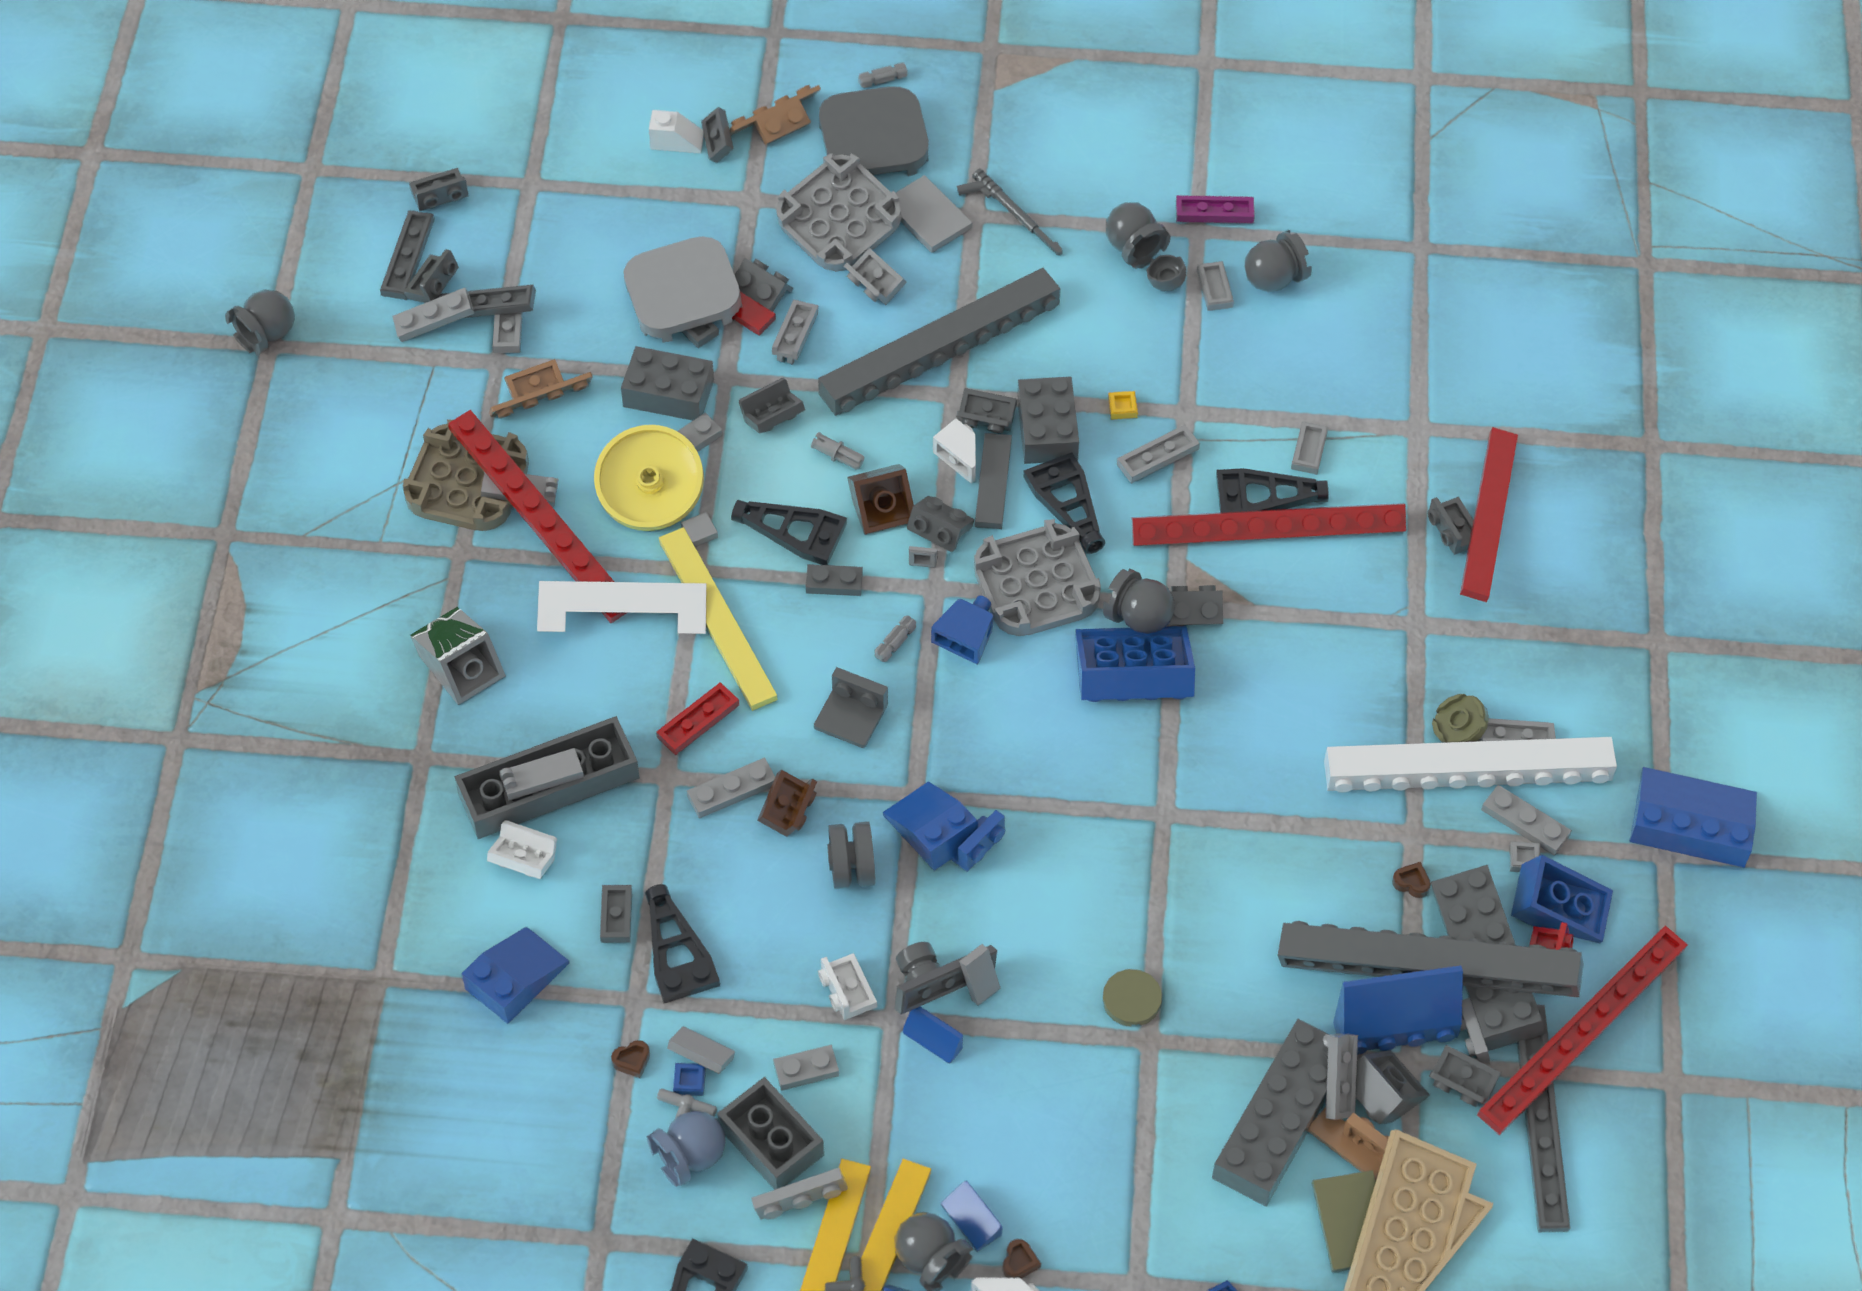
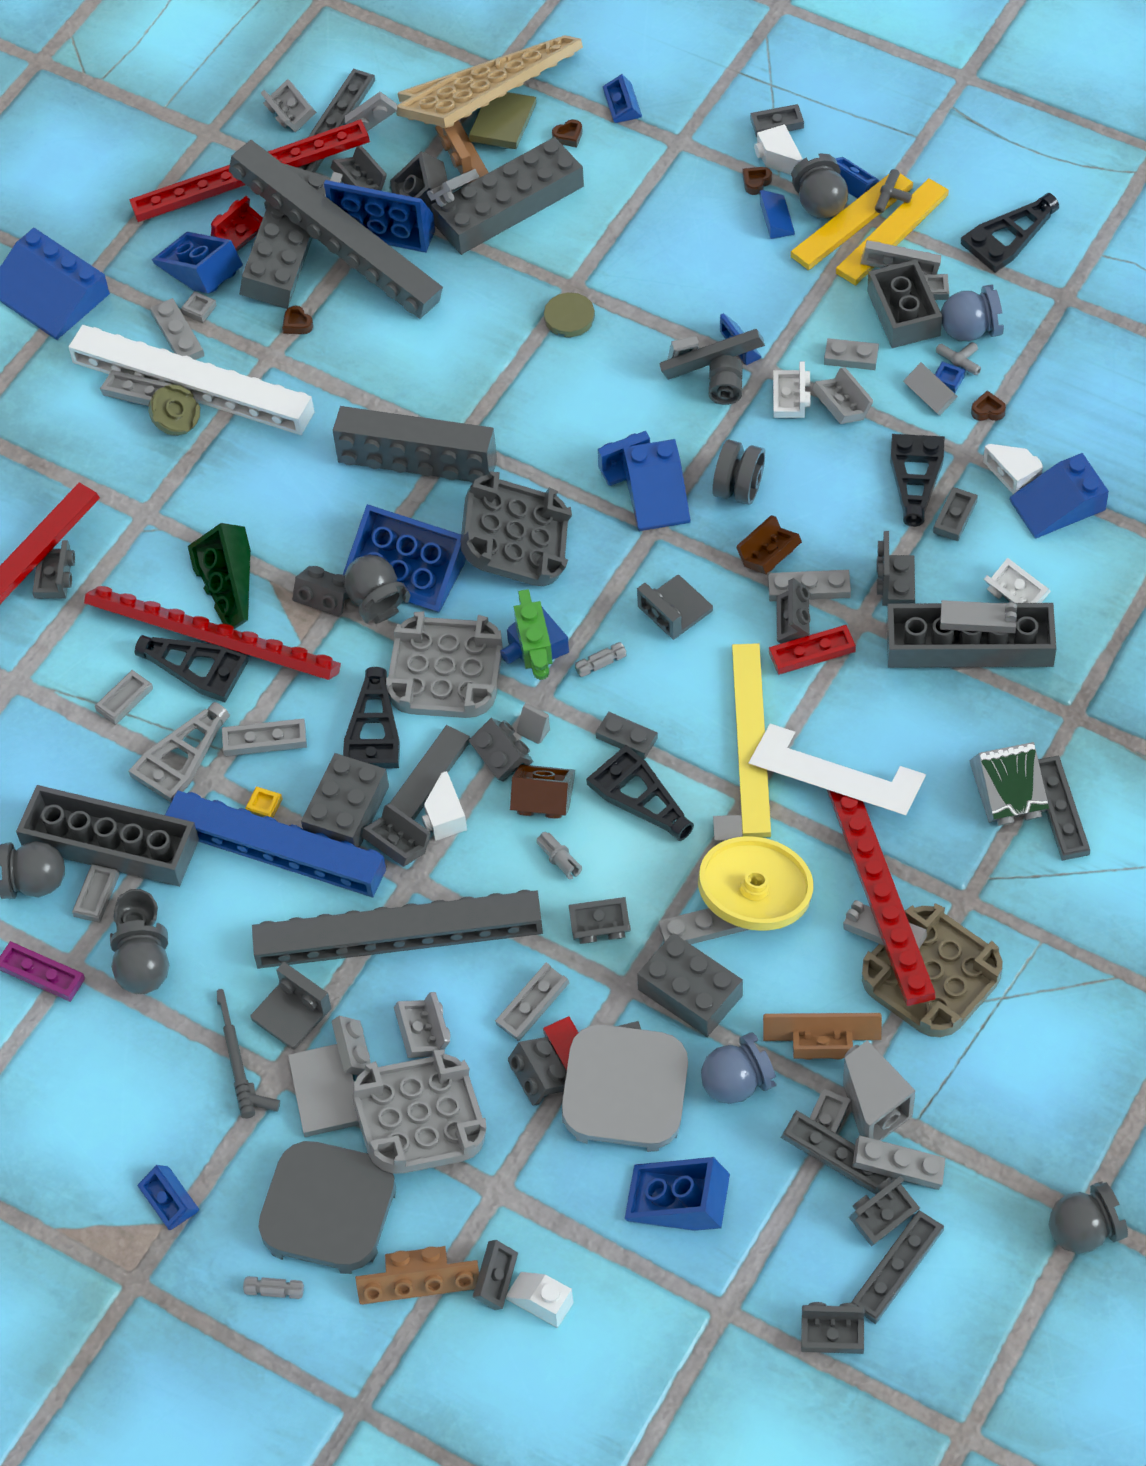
camera: 150 degrees left, 0 degrees up
(404, 661) = (1062, 811): none -> dark grey tile
(470, 346) = (877, 1092): none -> light grey slope
(575, 986) = (1012, 465): none -> white slope
(593, 324) = (735, 1072): none -> sand blue tile
(600, 233) = (679, 1194): none -> blue slope
(649, 820) = (895, 575): none -> dark grey bracket
(730, 738) = (793, 612): none -> dark grey bracket
(748, 1187) = (938, 285): none -> light grey tile
(790, 998) = (843, 397): none -> light grey bracket
(923, 243) = (351, 1044): none -> light grey plate
(959, 598) = (533, 635): none -> bright green hinge
(990, 254) = (292, 1007): none -> dark grey bracket
(1002, 105) = (167, 1196): none -> blue slope
(1041, 710) = (515, 530): none -> dark grey tile
(1093, 367) = (281, 844): none -> blue brick
(1193, 763) = (414, 444): none -> dark grey brick
(1228, 389) = (164, 779): none -> light grey plate
(1232, 316) = (110, 835): none -> dark grey brick
(1268, 1239) = (569, 133): none -> reddish brown tile
(1300, 594) = (224, 565): none -> dark green wedge
(1497, 1147) = (372, 111): none -> light grey plate
(1605, 1136) = (290, 106): none -> light grey bracket

